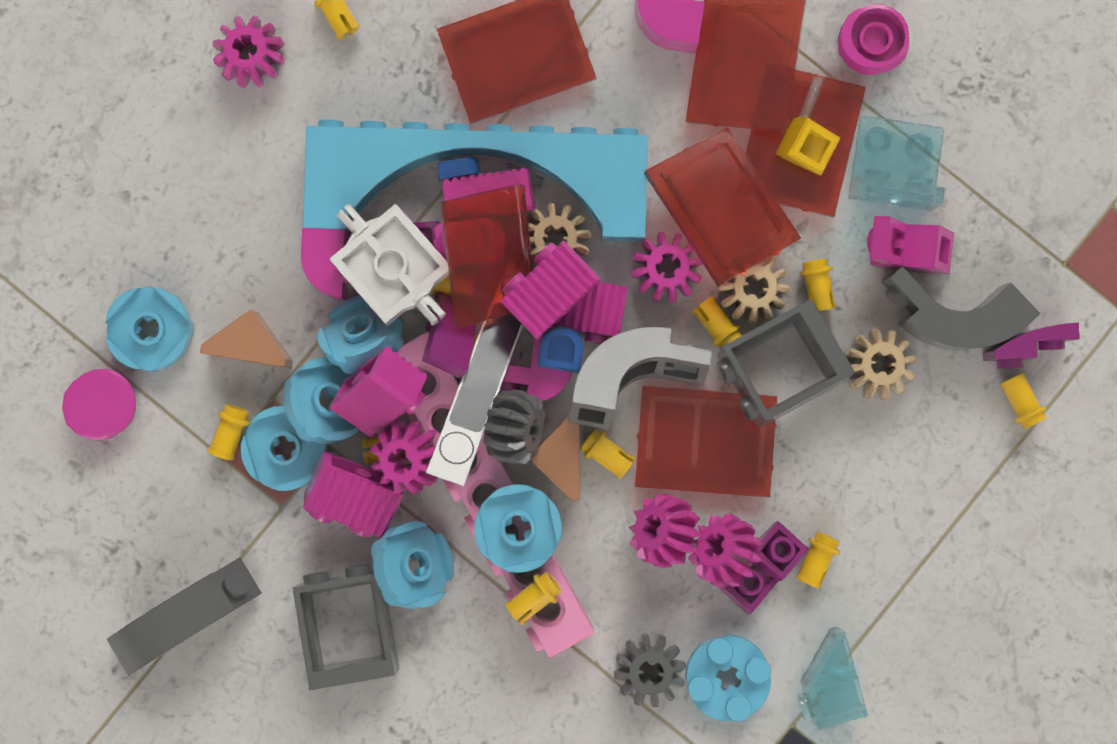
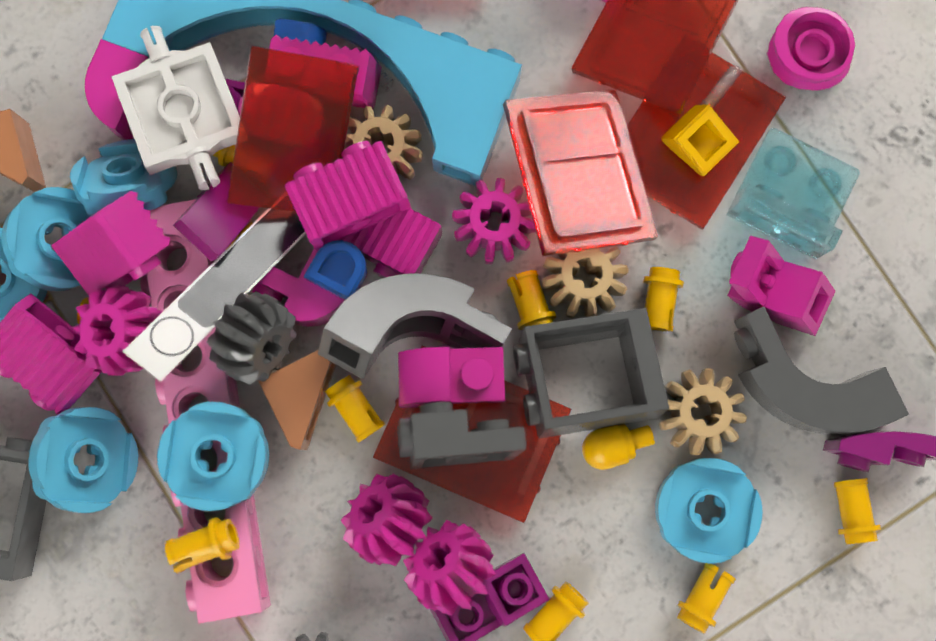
camera: 20 degrees right, 5 degrees down
(677, 405) = (450, 376): none -> dark pink brick
(691, 453) = (443, 438): none -> dark grey plate
(820, 413) = (615, 445): none -> yellow cylinder
(927, 454) = (732, 492): none -> medium azure plate
(928, 510) = (703, 601): none -> yellow pin

